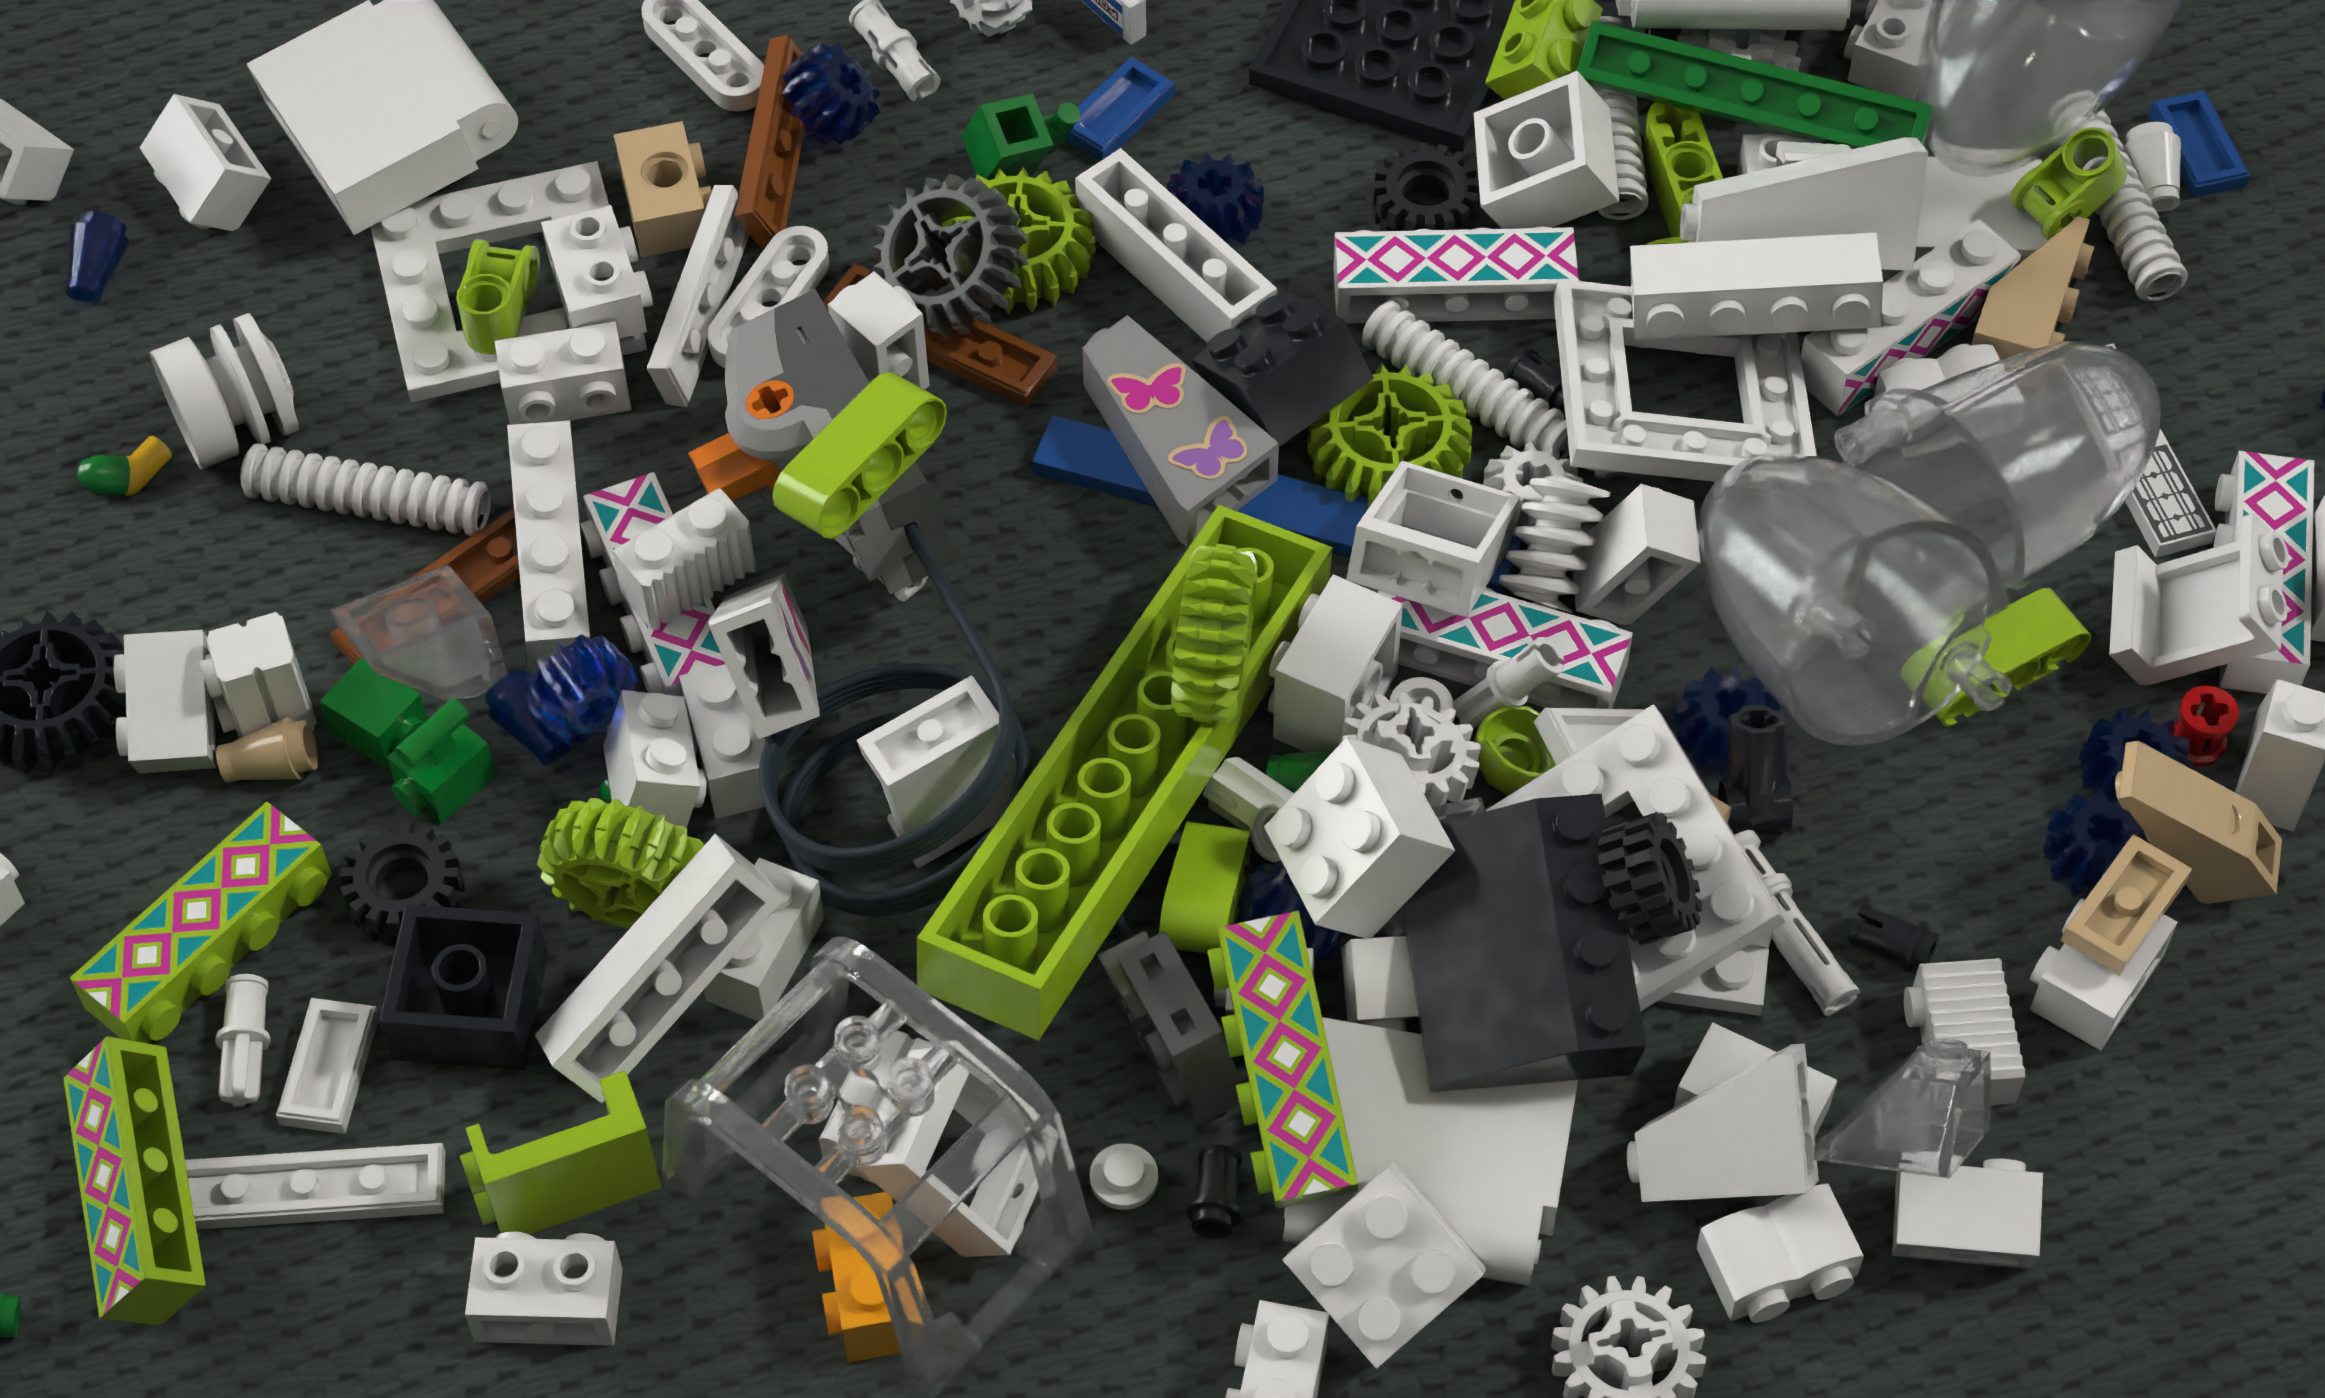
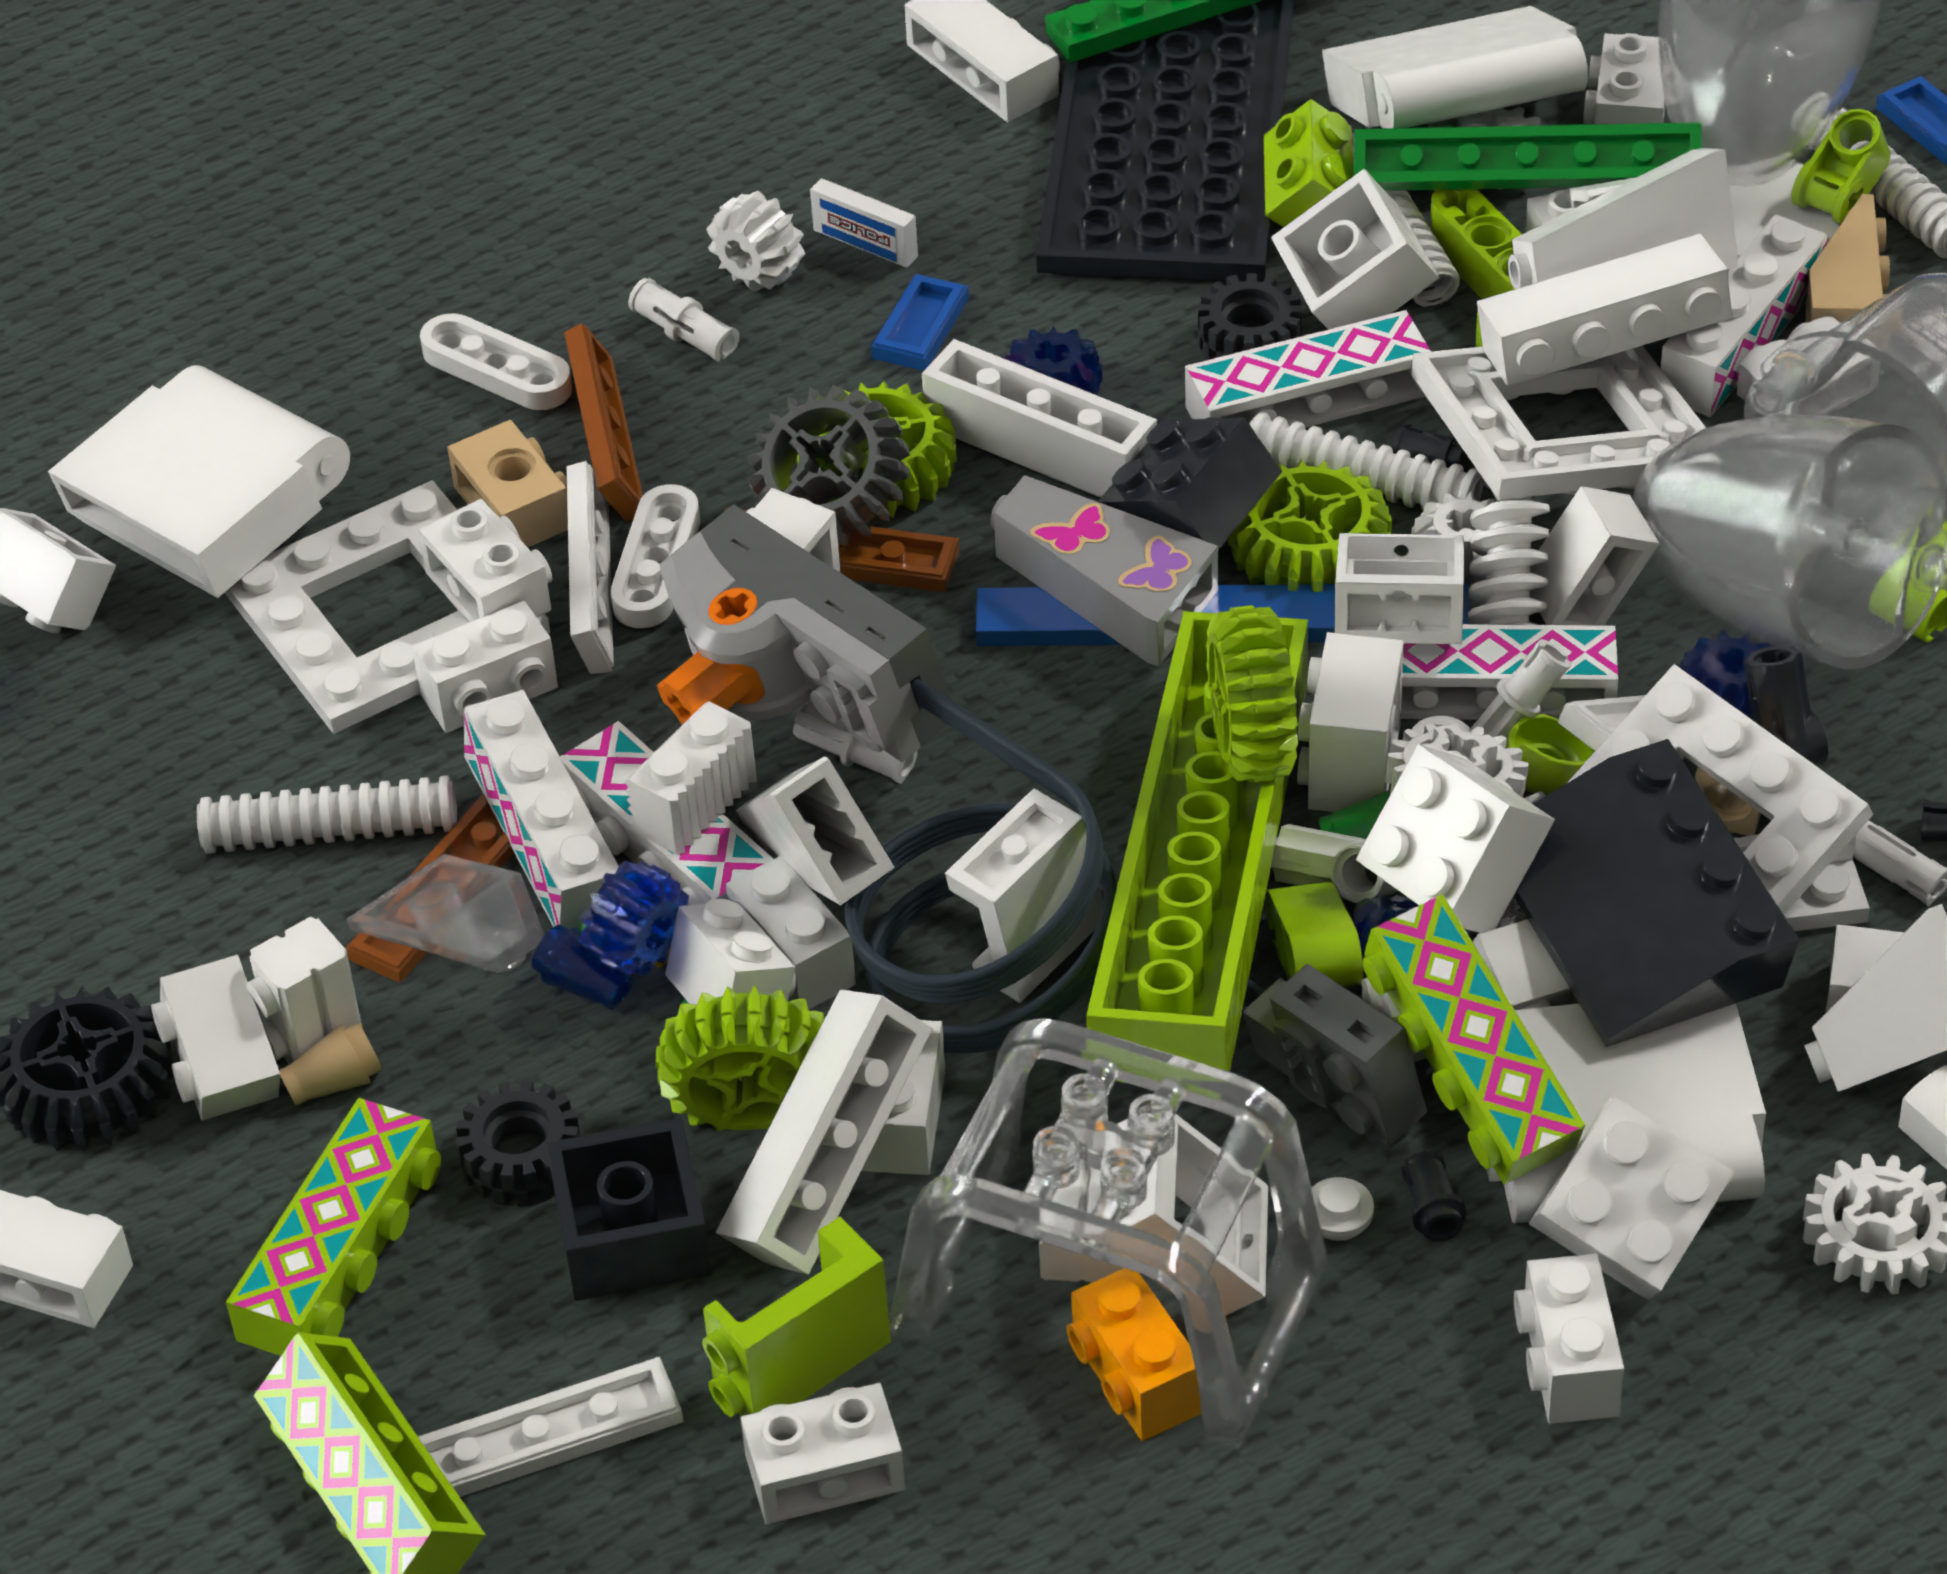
camera: 15 degrees left, 10 degrees down
(123, 473) = (68, 863): arm -> none
(225, 390) = (154, 755): white wheel -> none
(243, 1039) = (416, 1320): white axle -> none
(327, 1065) = (511, 1323): white tile -> none
(372, 712) = (427, 1002): green brick -> none
(440, 764) = (514, 1025): green brick -> none
(496, 293) = (391, 609): lime piece -> none
(831, 93) = (644, 365): clear blue gear -> none
(859, 455) = (854, 618): lime beam -> none
(1015, 135) = (840, 354): green brick -> none
(1649, 878) = (1742, 799): black tyre -> none
(2156, 158) = (1909, 138): white cone -> none

